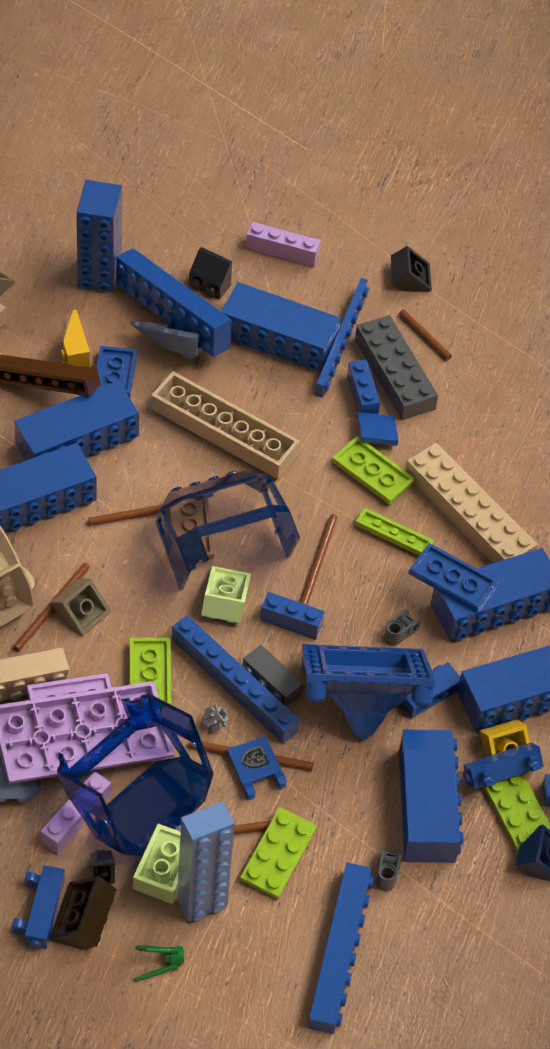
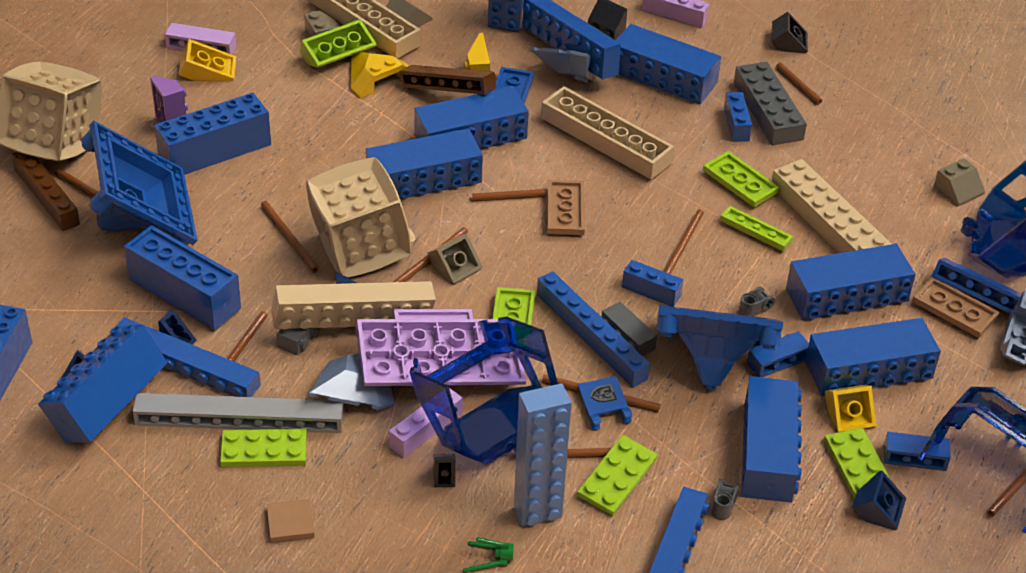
camera: 10 degrees right, 10 degrees down
(44, 907) = (383, 497): blue brick -> none
(83, 913) = (421, 506): dark brown slope -> none
(159, 866) = (496, 474): yellowish green slope -> none
(189, 547) = (562, 208): clear blue windscreen -> none
(215, 717) = (569, 357): light grey gear -> none
(226, 594) = (591, 263): yellowish green slope -> none
(340, 342) = (721, 78): blue plate -> none
(377, 429) = (748, 147): blue tile -> none
(453, 577) = (809, 258): blue tile -> none
(503, 765) = (845, 421): blue brick -> none

